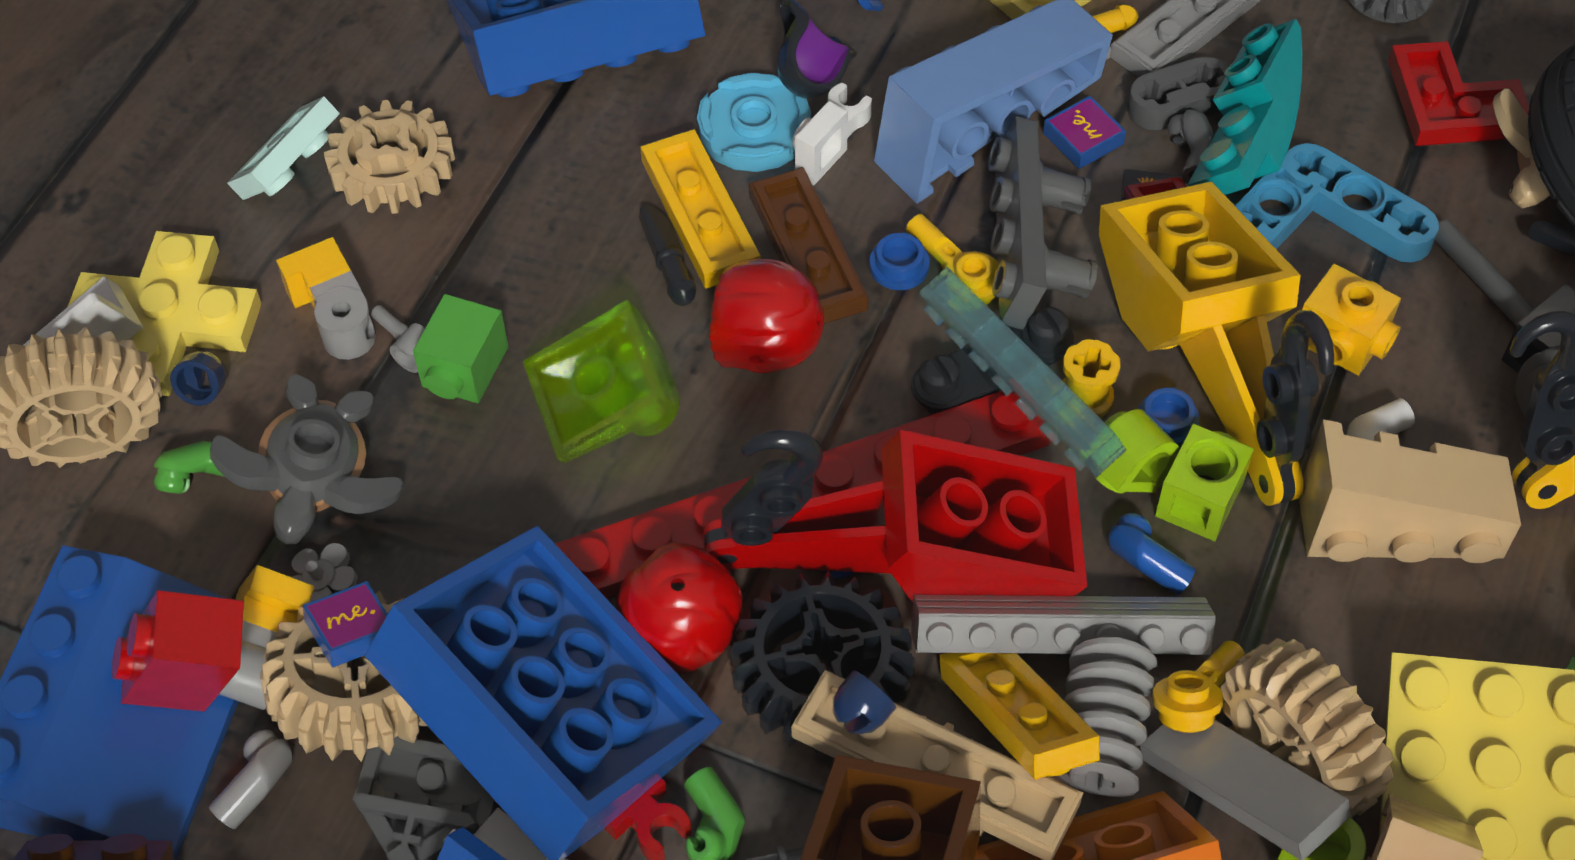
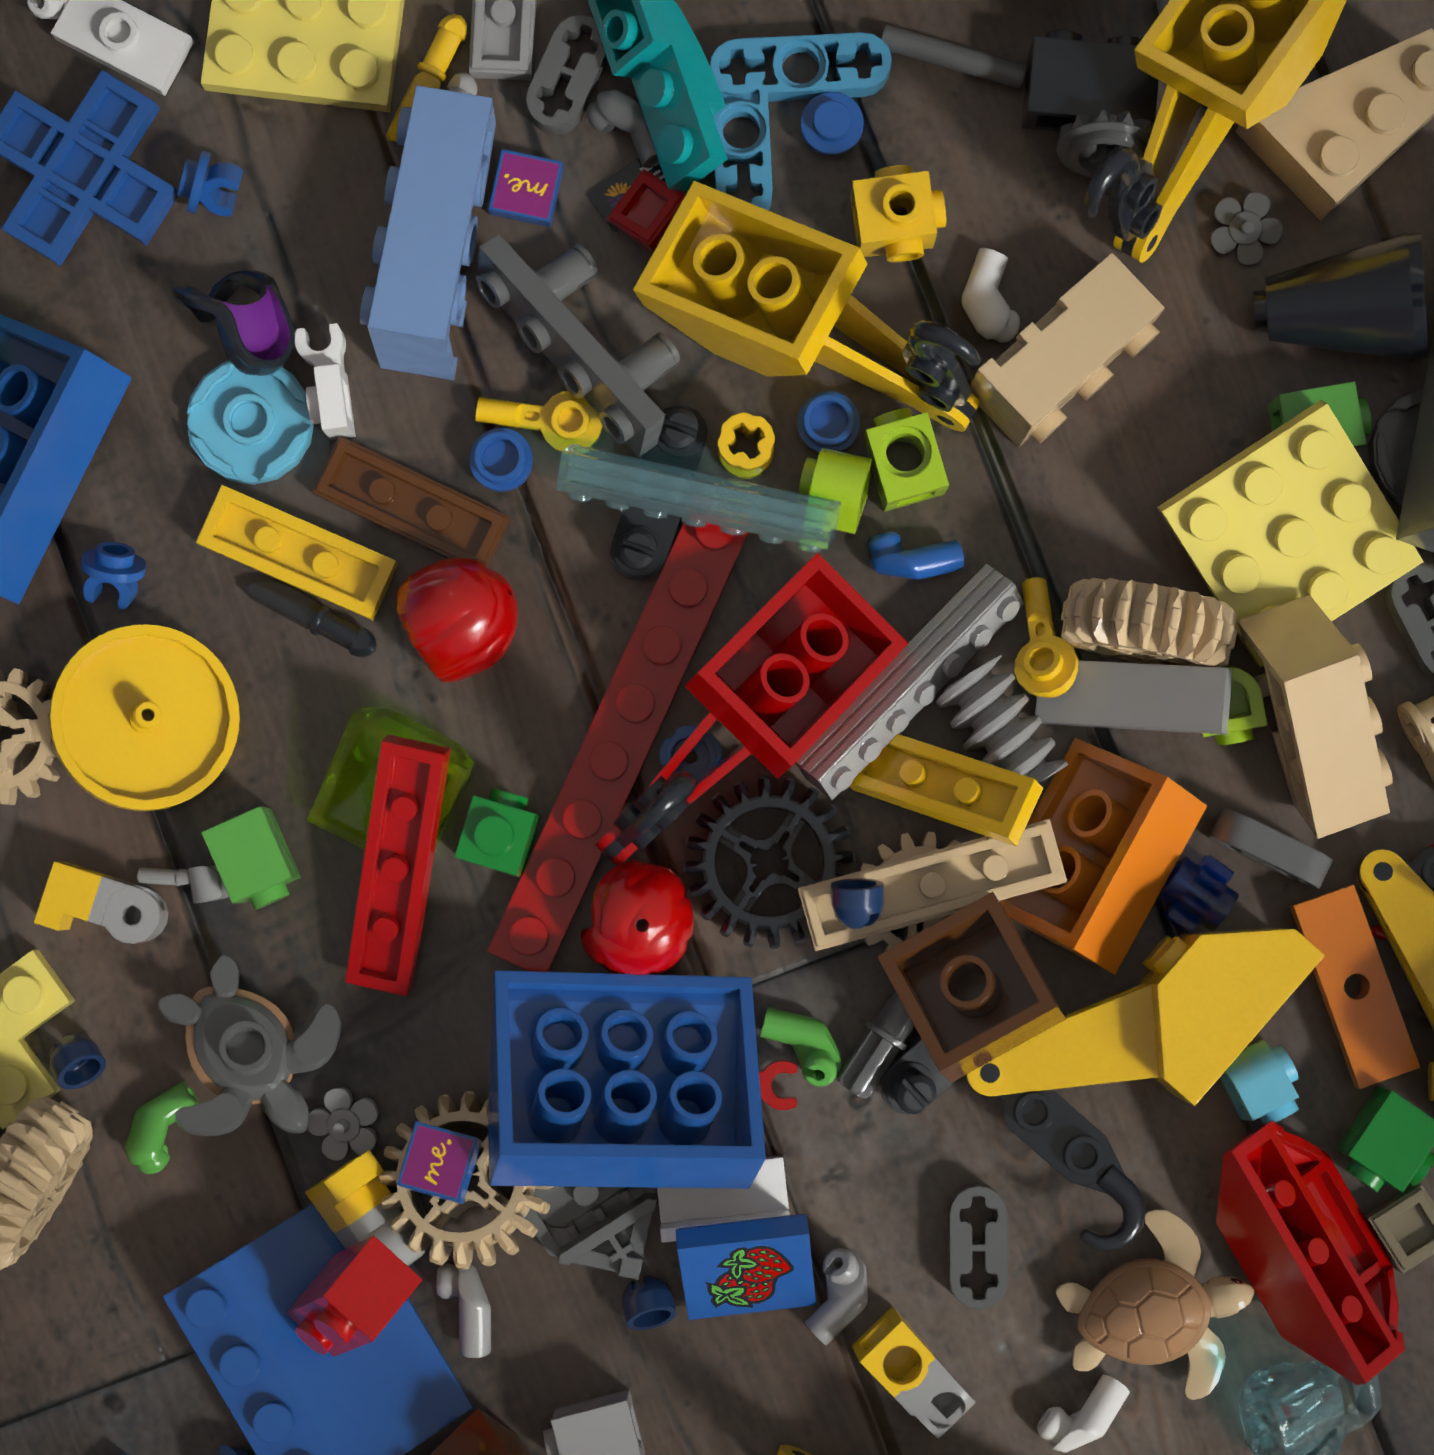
camera: 40 degrees left, 30 degrees up
(489, 214) = (144, 717): none -> yellow piece
(548, 422) = (397, 864): none -> red plate
(572, 124) = (116, 565): none -> blue plate
(641, 468) = (498, 832): none -> green brick
(1350, 246) = (832, 124): none -> blue plate

